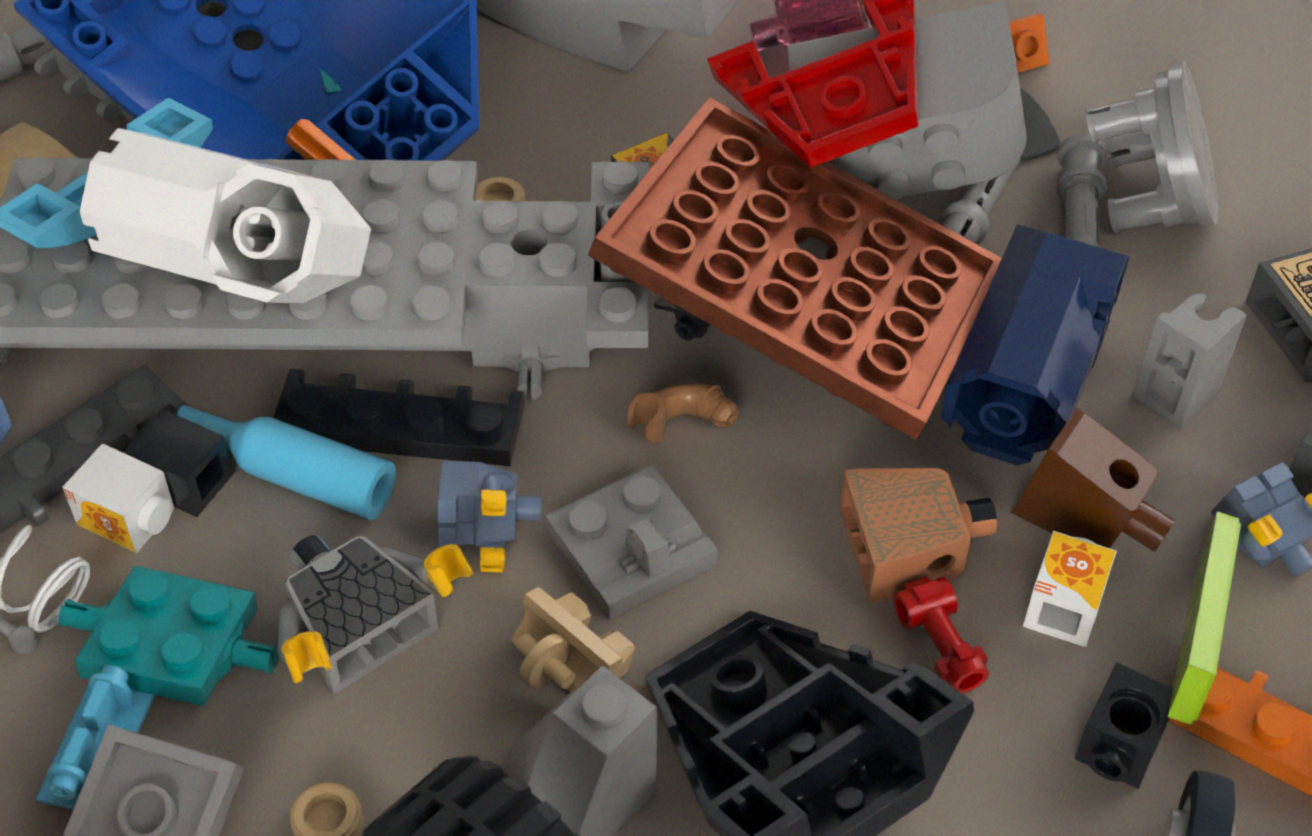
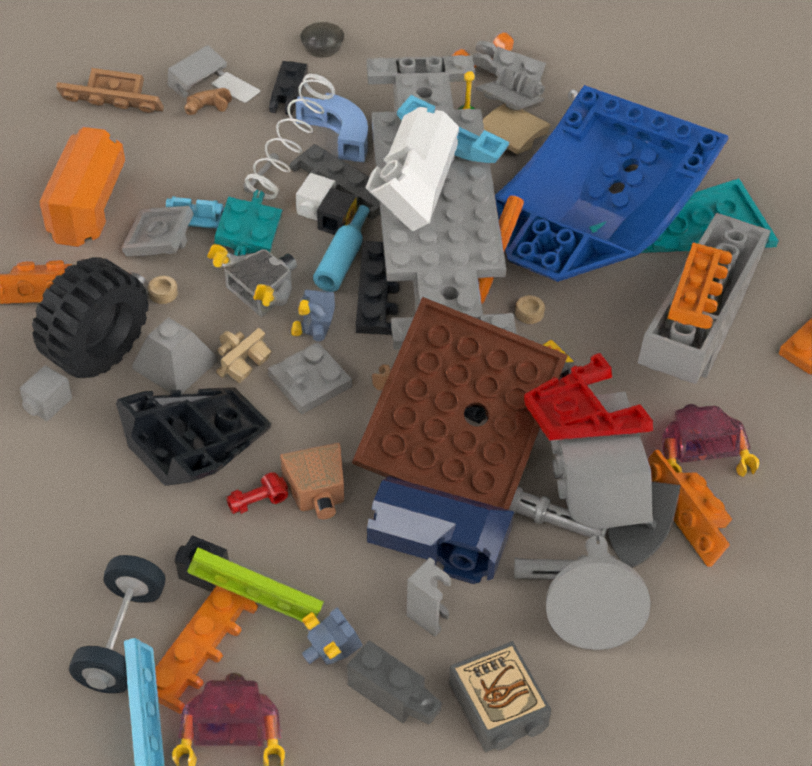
camera: 85 degrees right, 0 degrees up
(1069, 588) = (283, 545): brick -> none
(1093, 488) = (337, 549): reddish brown torso -> none

